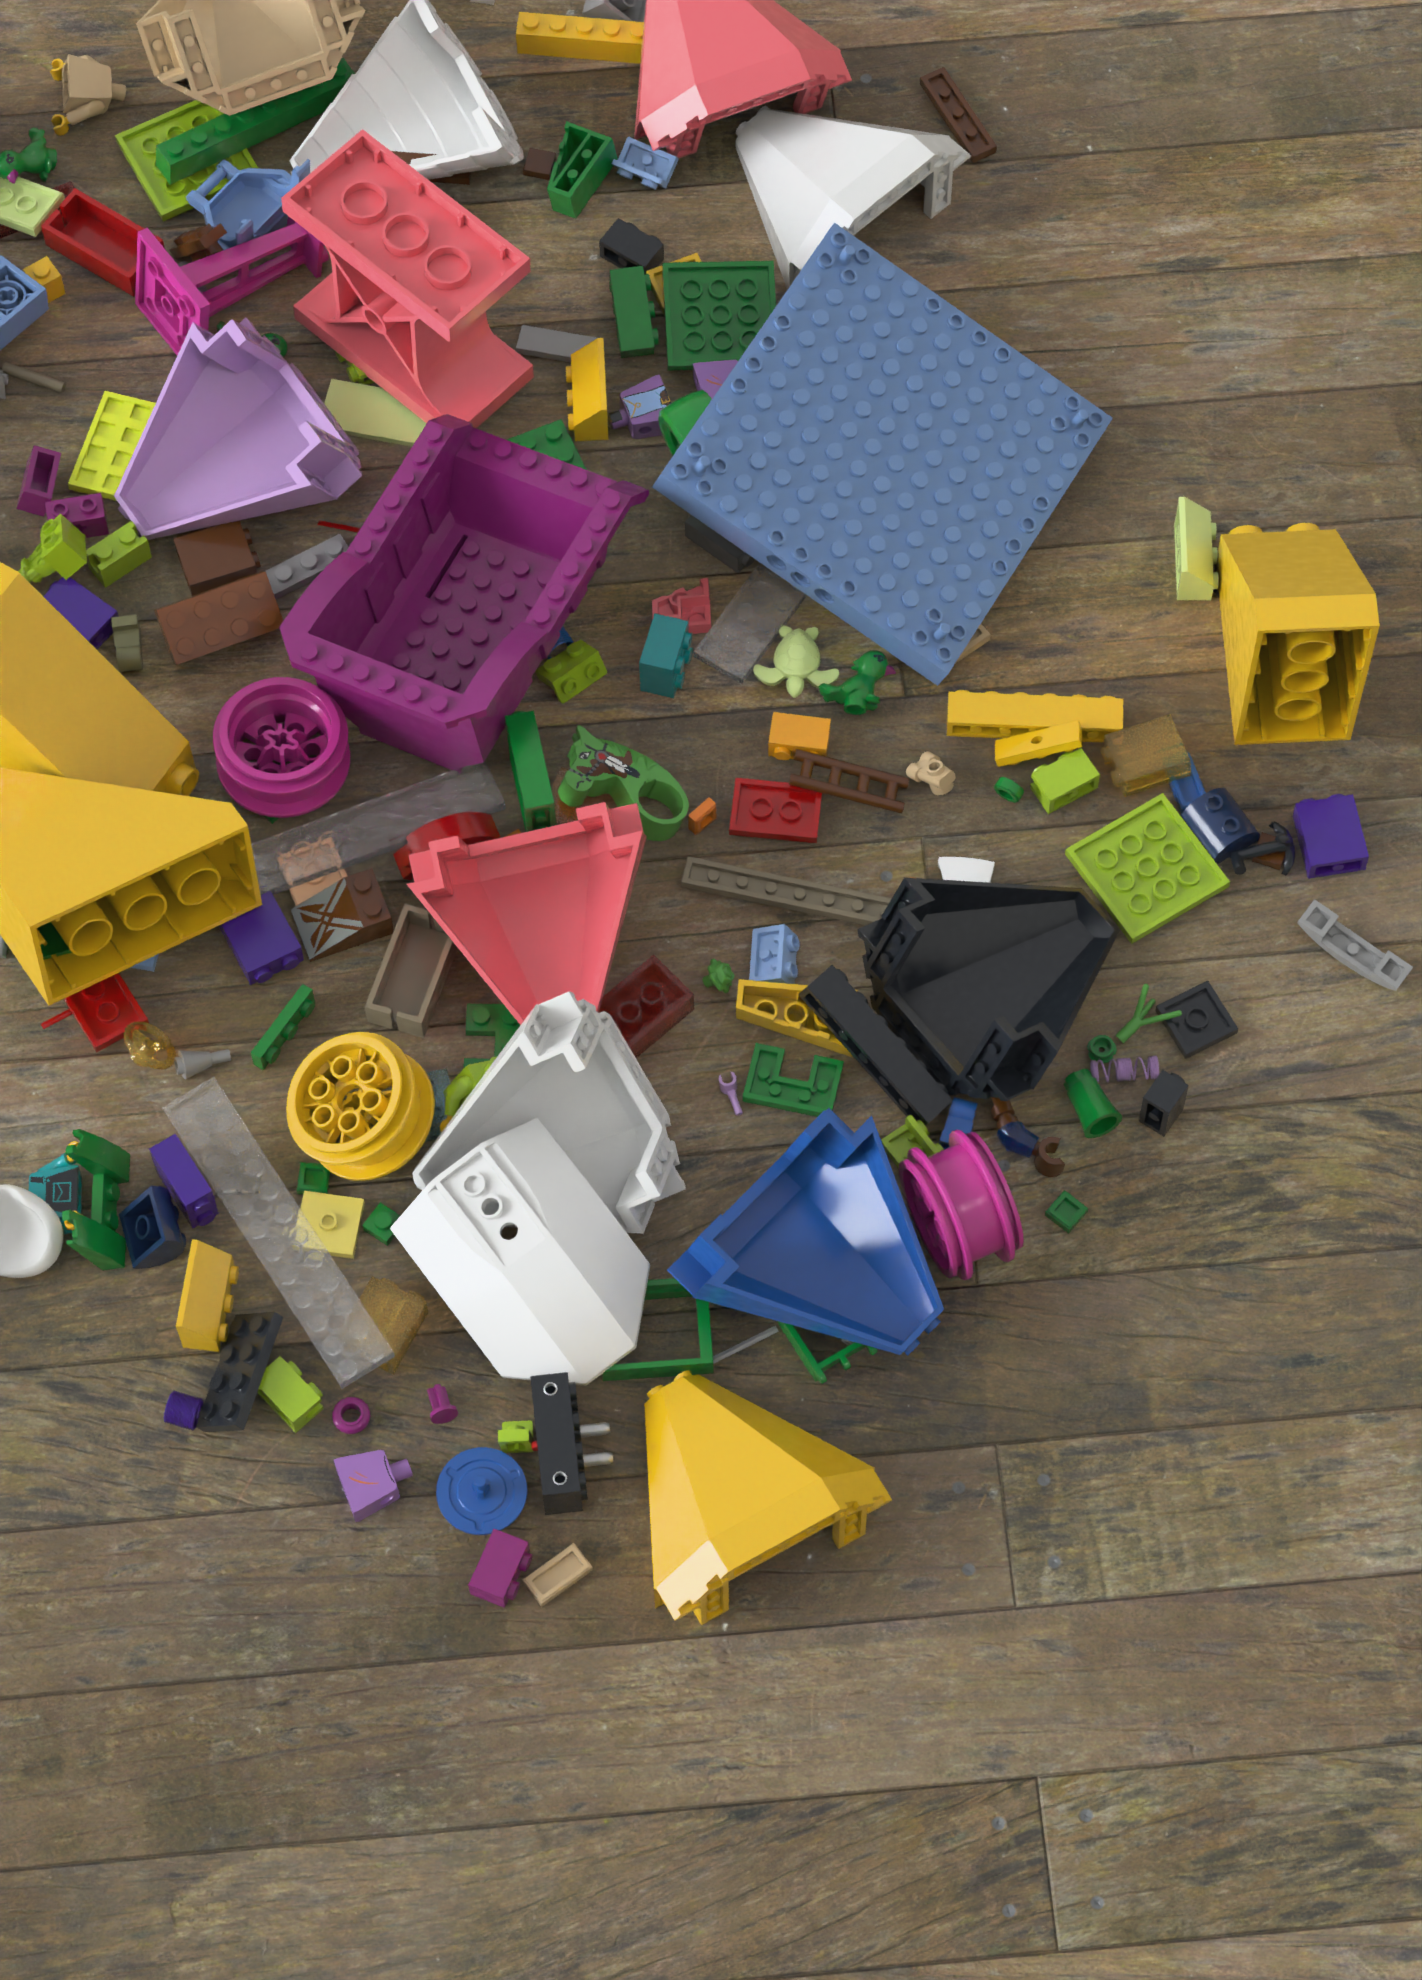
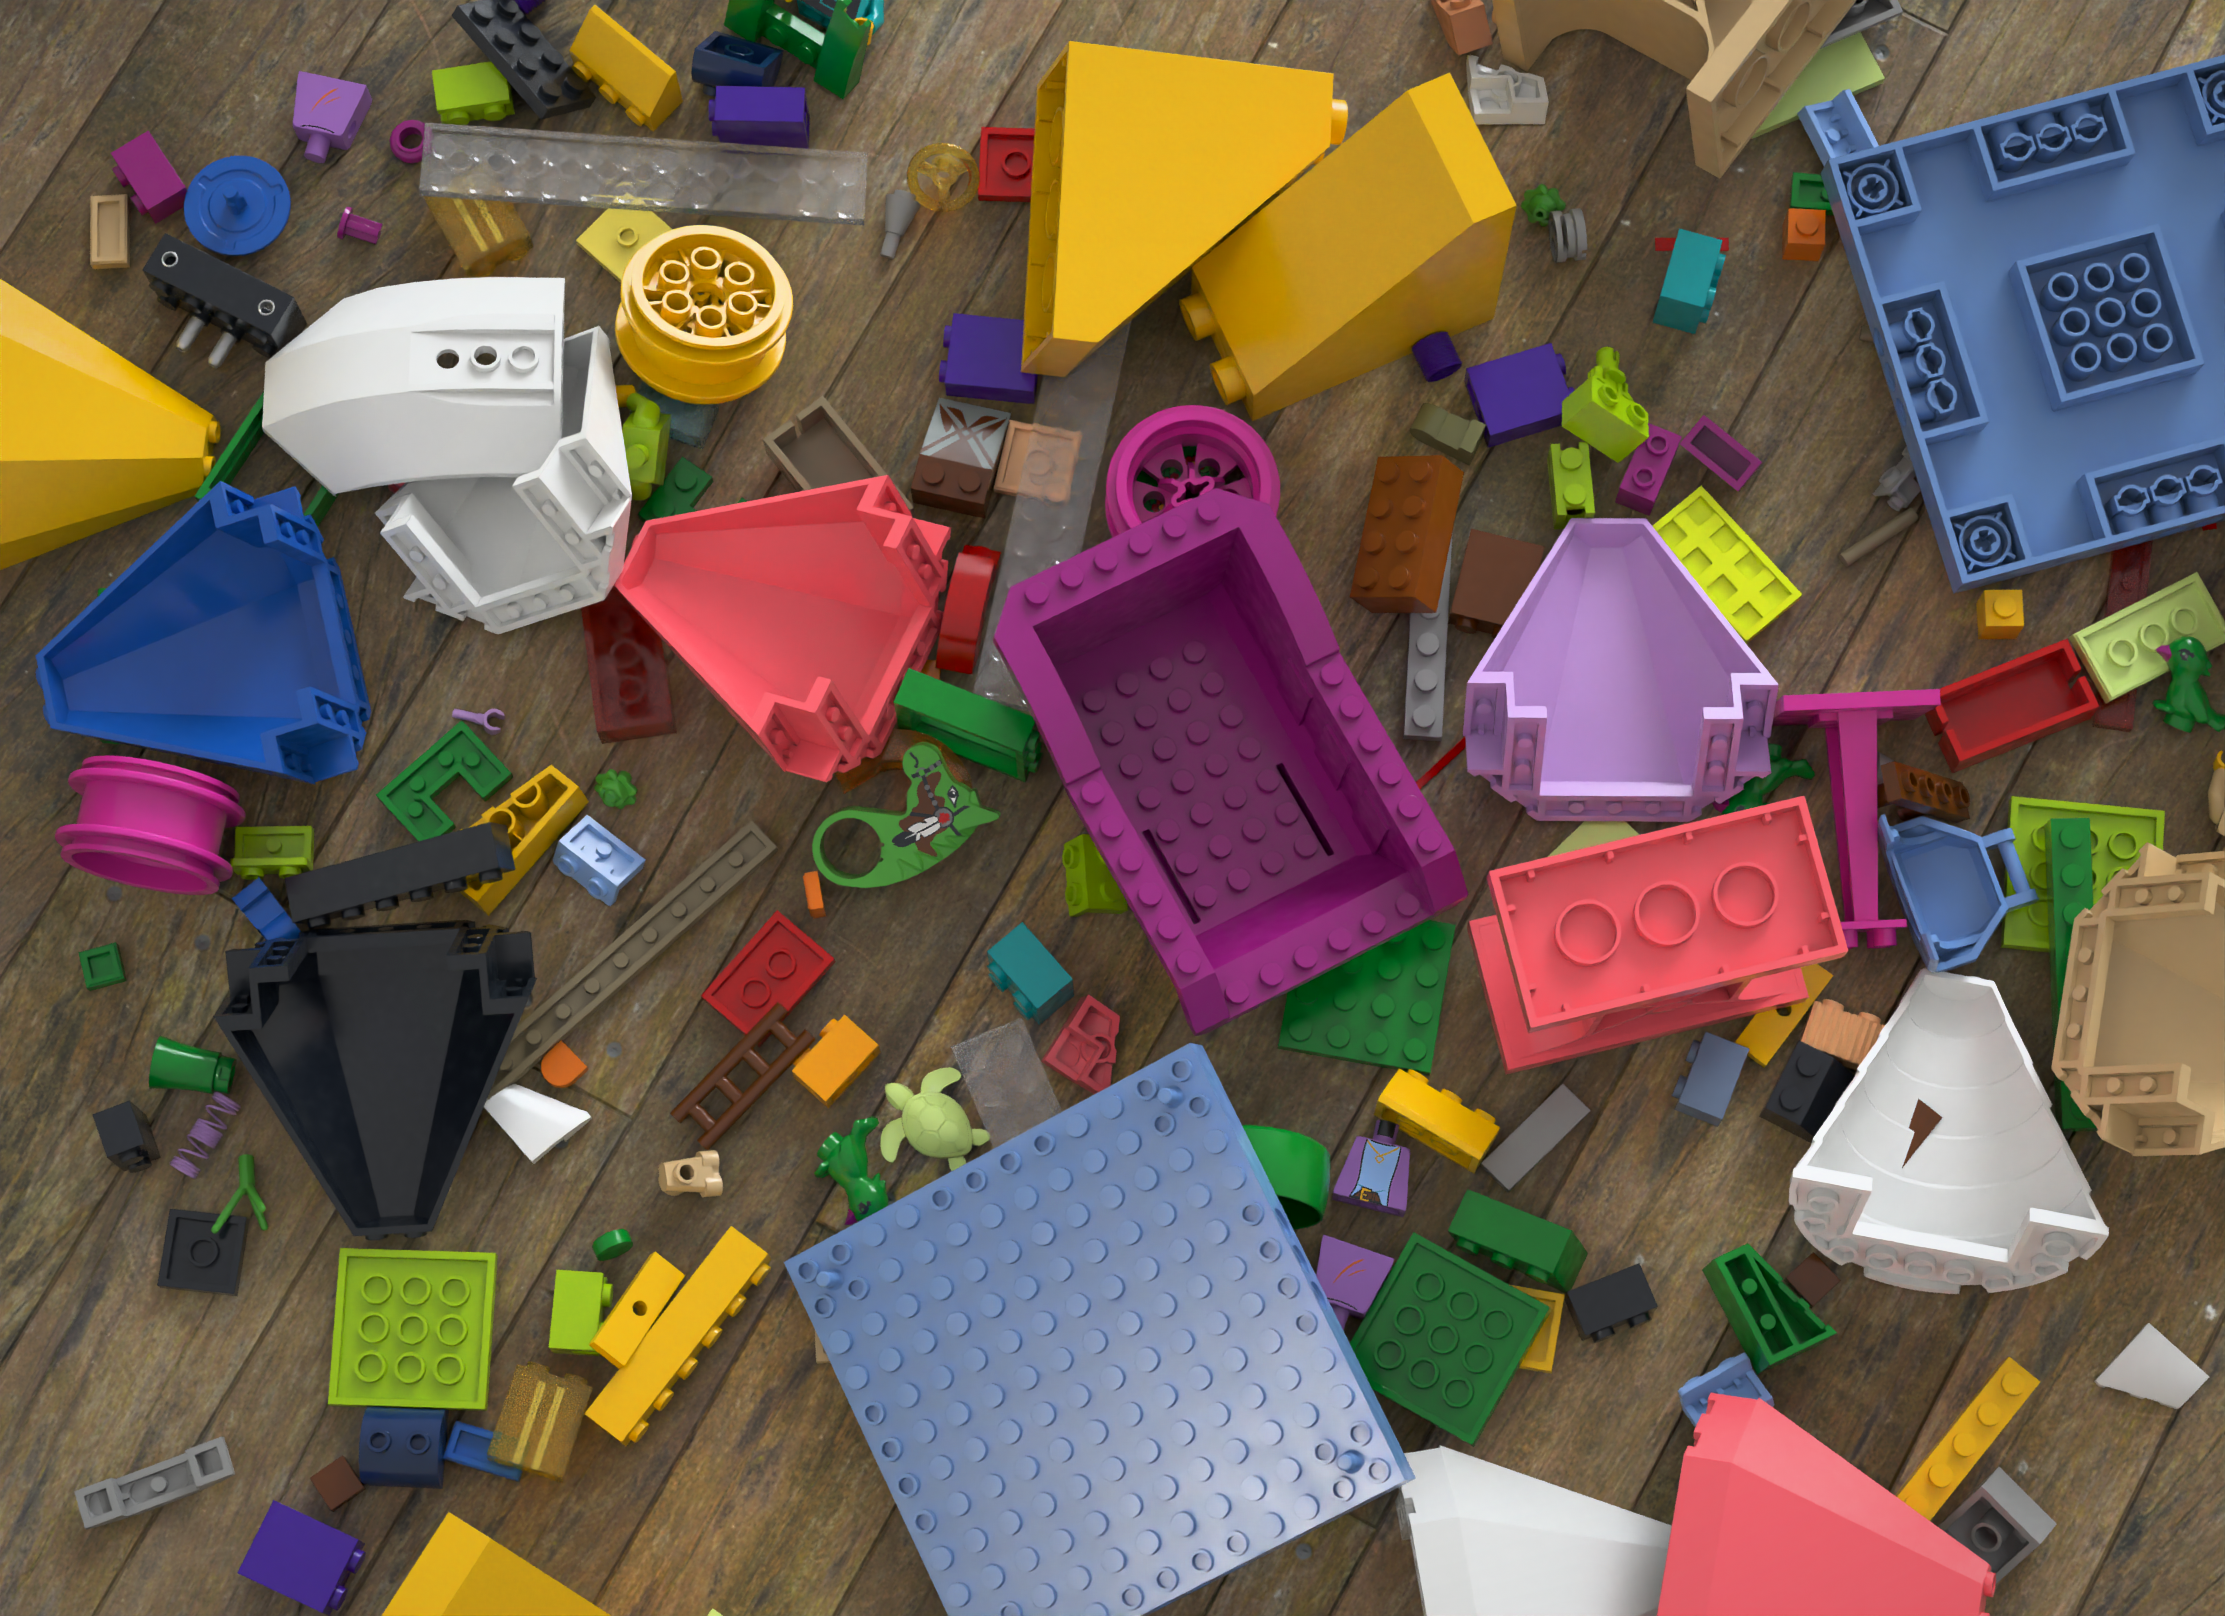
camera: 125 degrees right, 10 degrees up
(283, 1027) = (872, 321): green plate -> none
(380, 1222) = (590, 292): green plate -> none
(516, 1436) = (265, 266): lime bracket -> none
(1023, 1142) = (200, 972): piece -> none
(1104, 1042) = (239, 1122): green plate -> none
(1282, 842) = (322, 1489): black piece -> none

